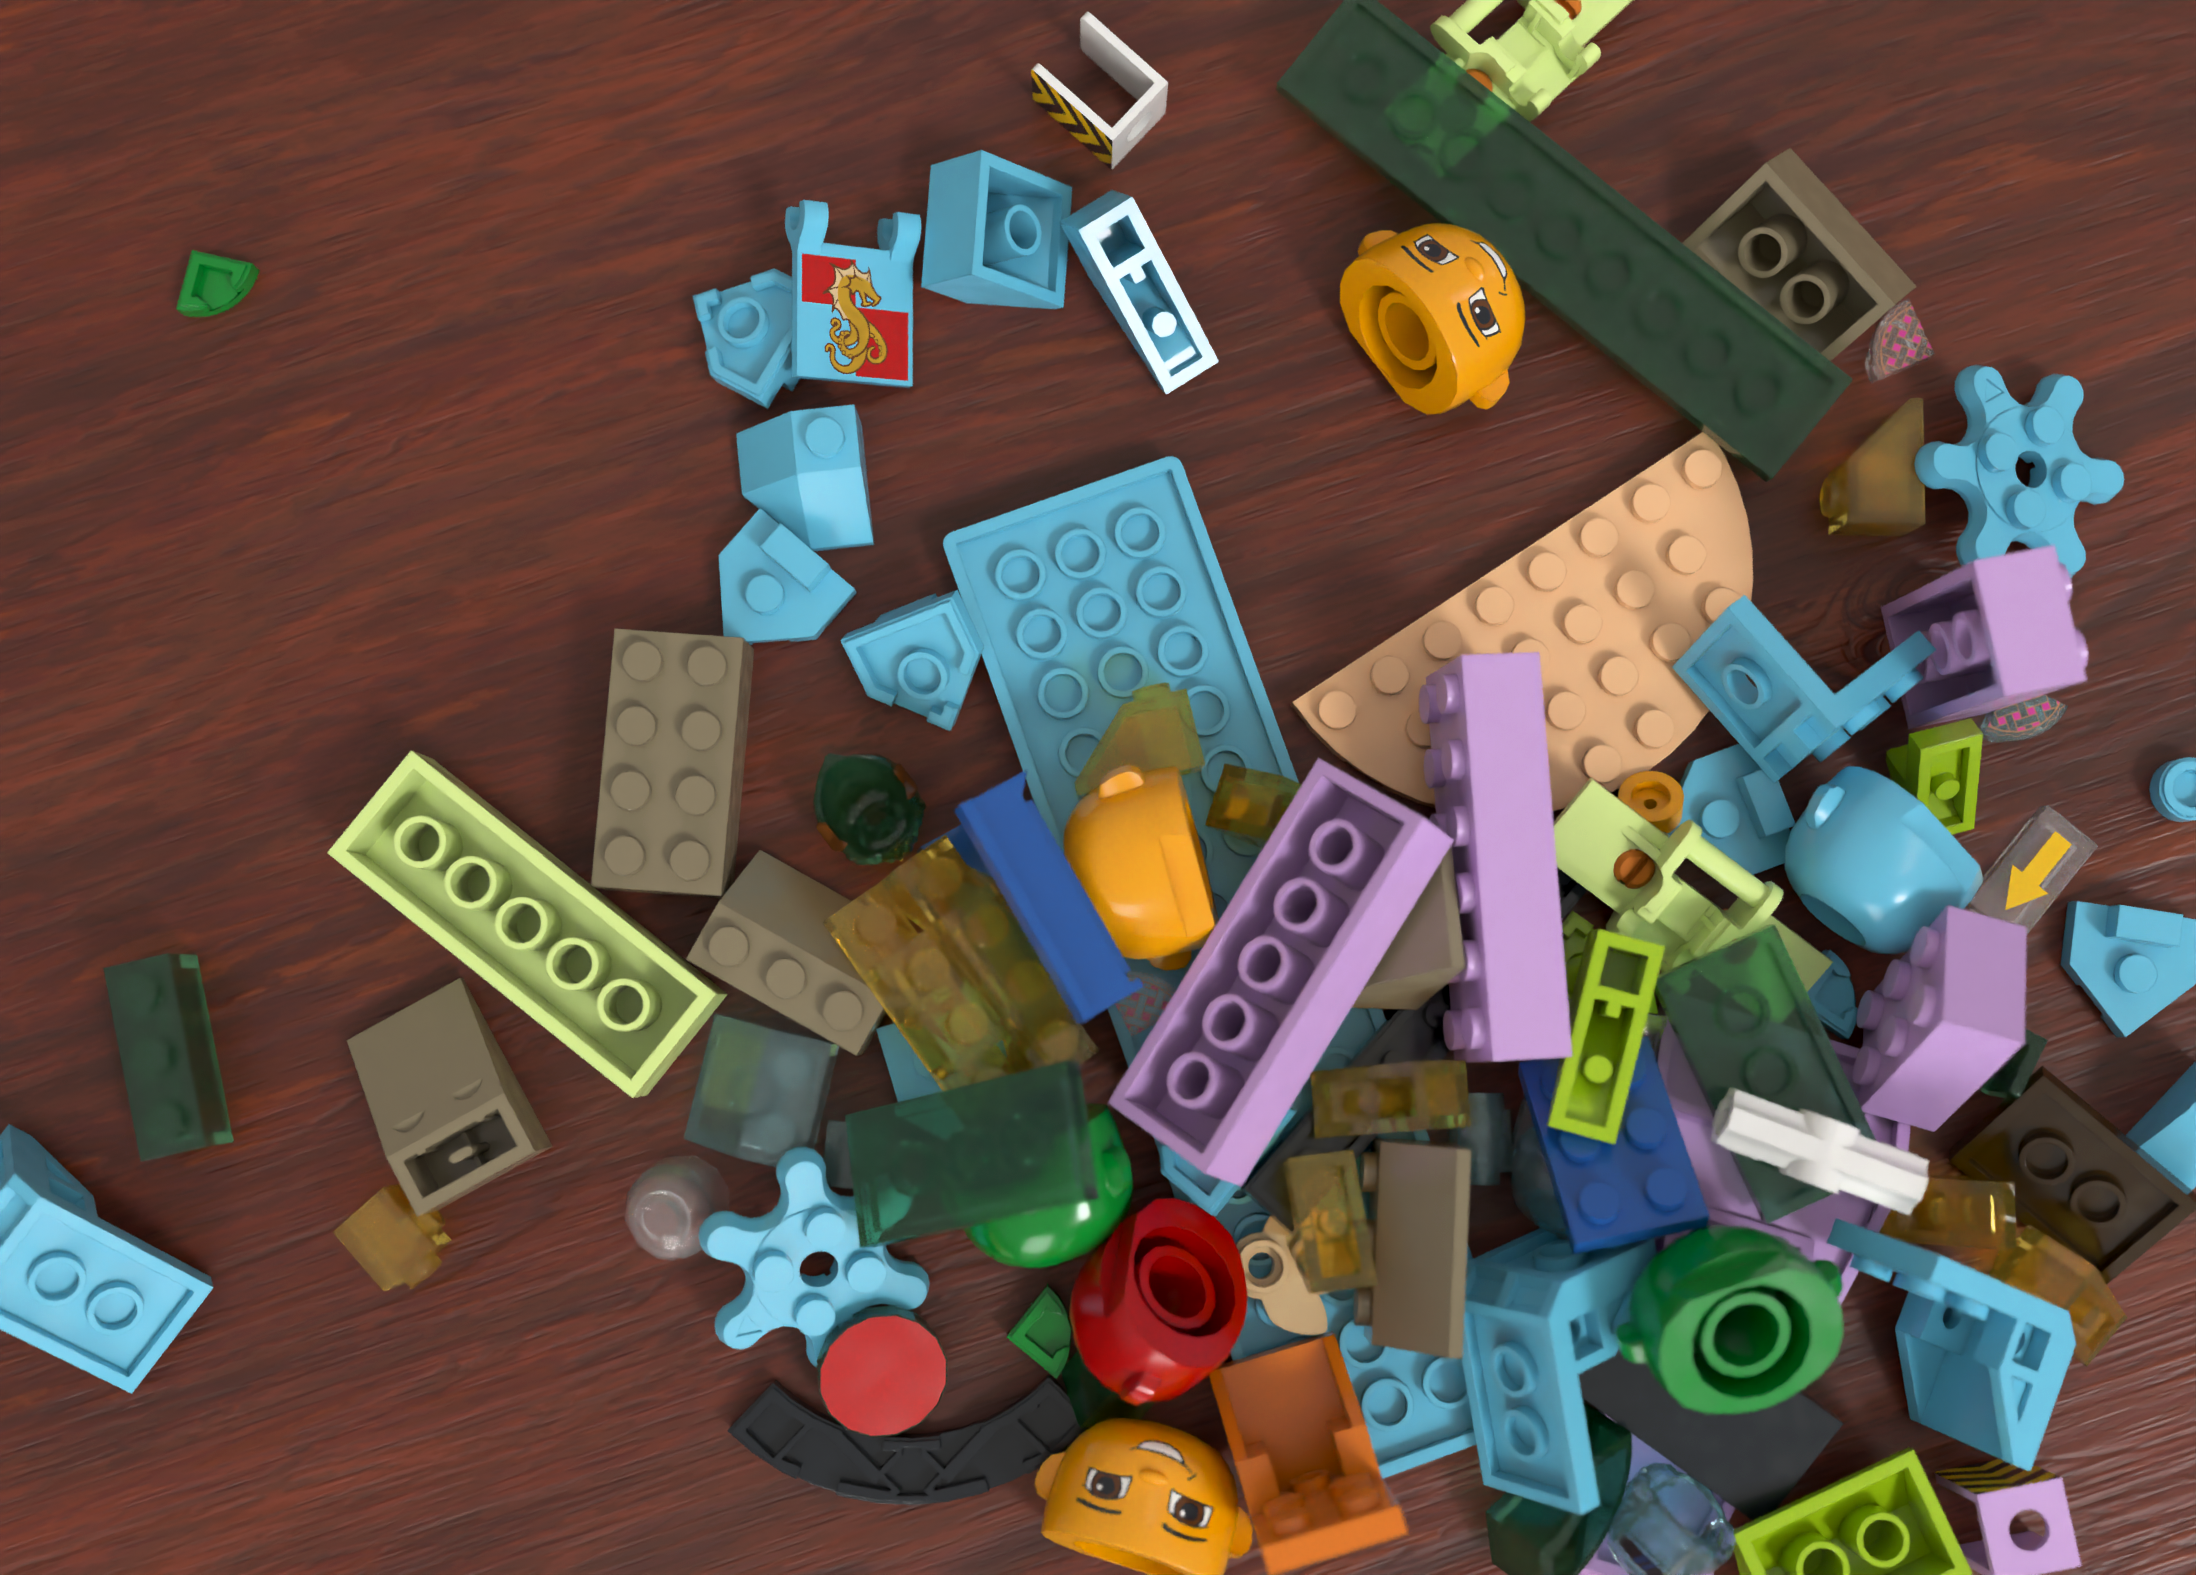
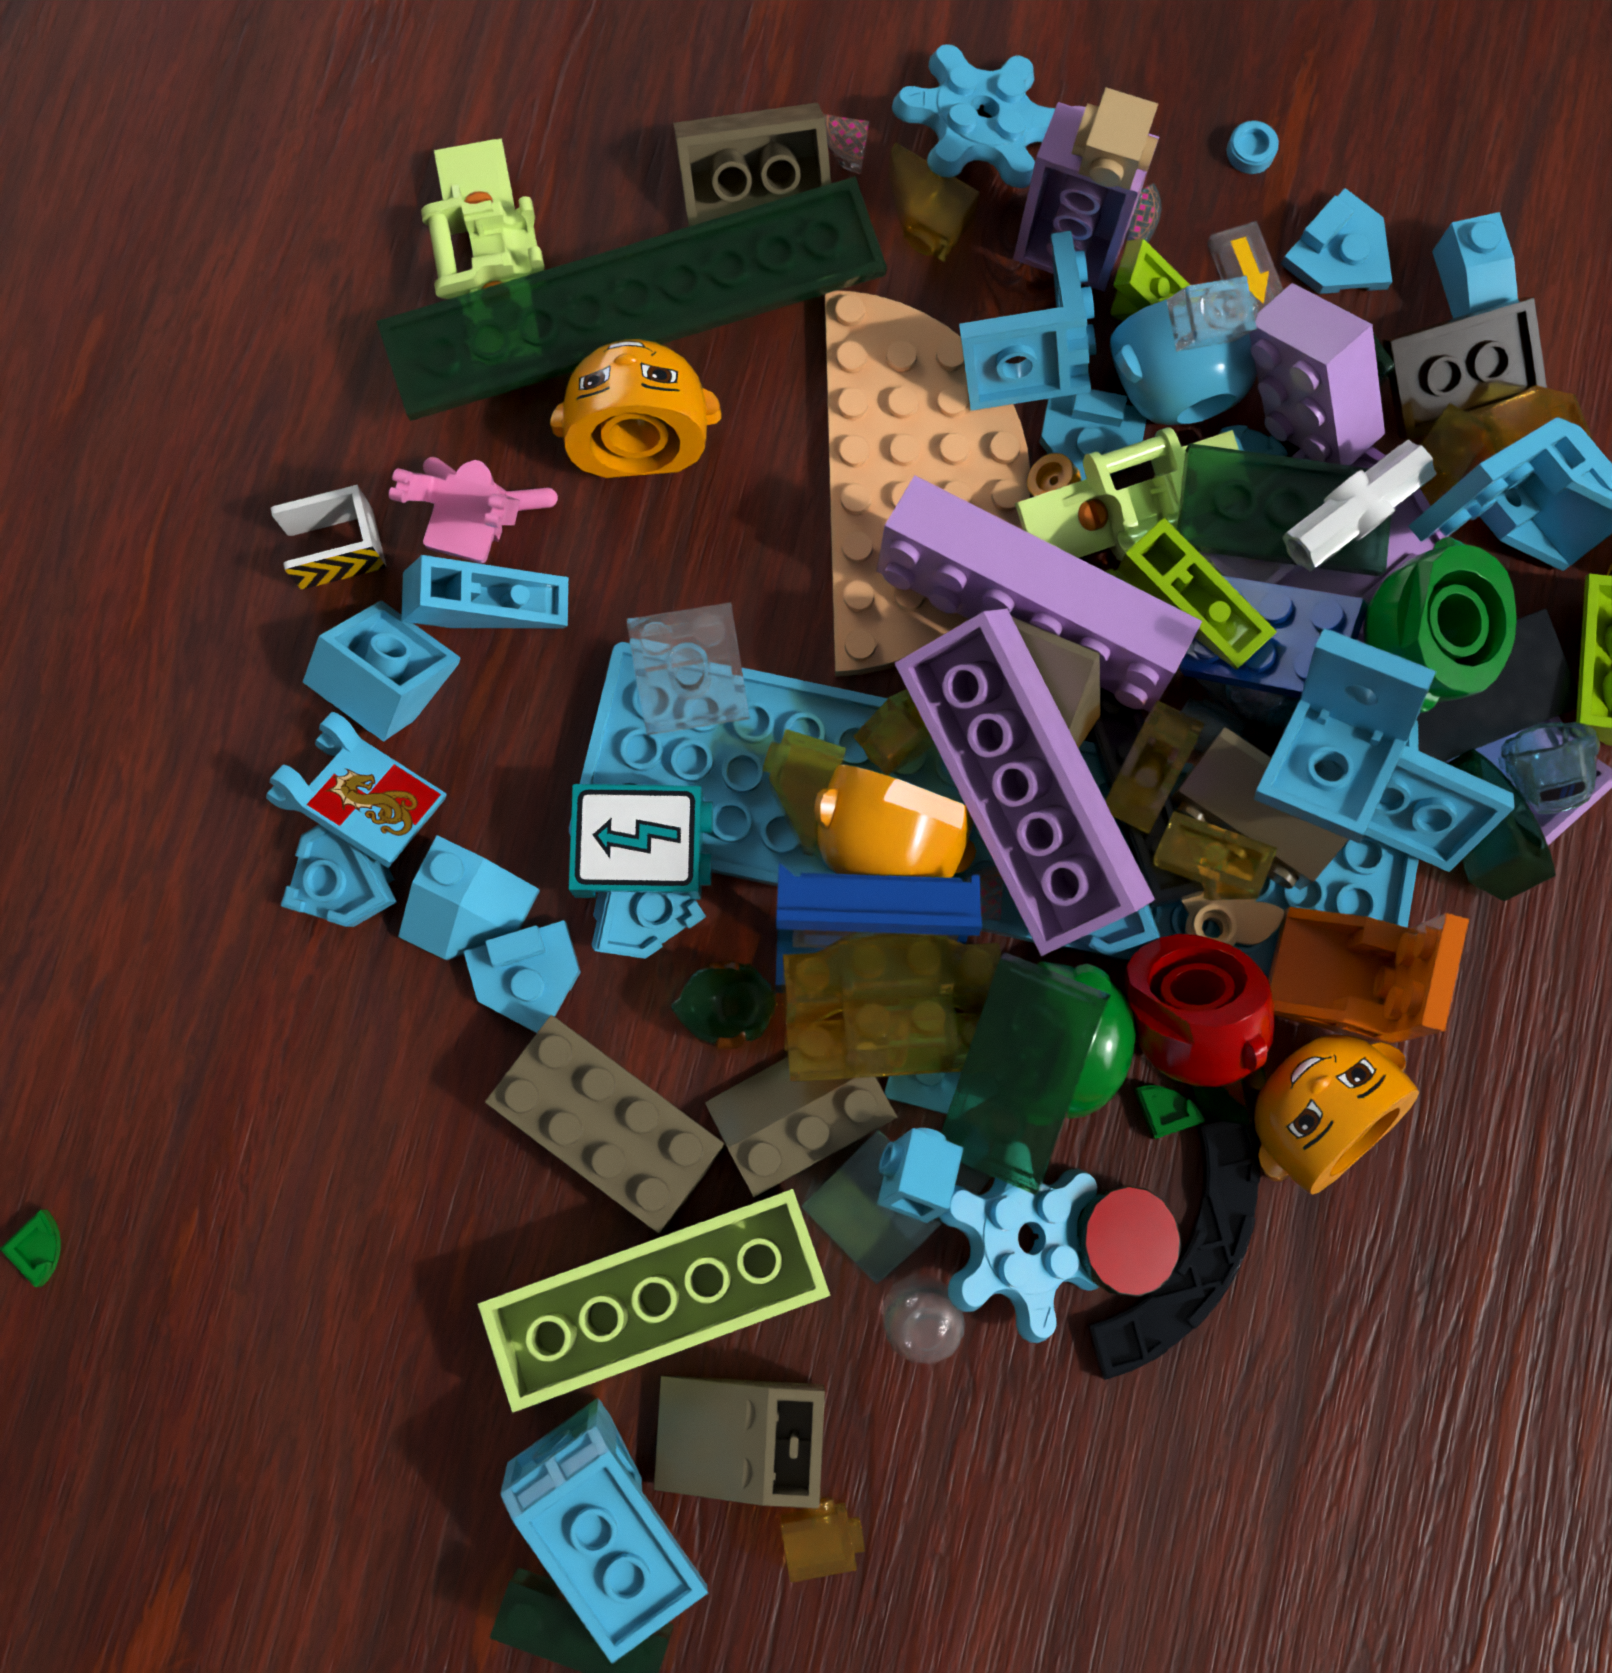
camera: 55 degrees left, 5 degrees down
(262, 994) = (598, 1533): none -> medium azure bracket
(805, 1113) = (919, 1174): none -> medium azure brick
(977, 613) = (639, 839): none -> panel
(1190, 547) = (688, 668): none -> clear slope
(1219, 209) = (466, 506): none -> bright pink piece
(1561, 1276) = (1350, 712): none -> medium azure bracket
(1929, 861) = (1212, 313): none -> clear brick
(2045, 634) = (1116, 139): none -> tan brick

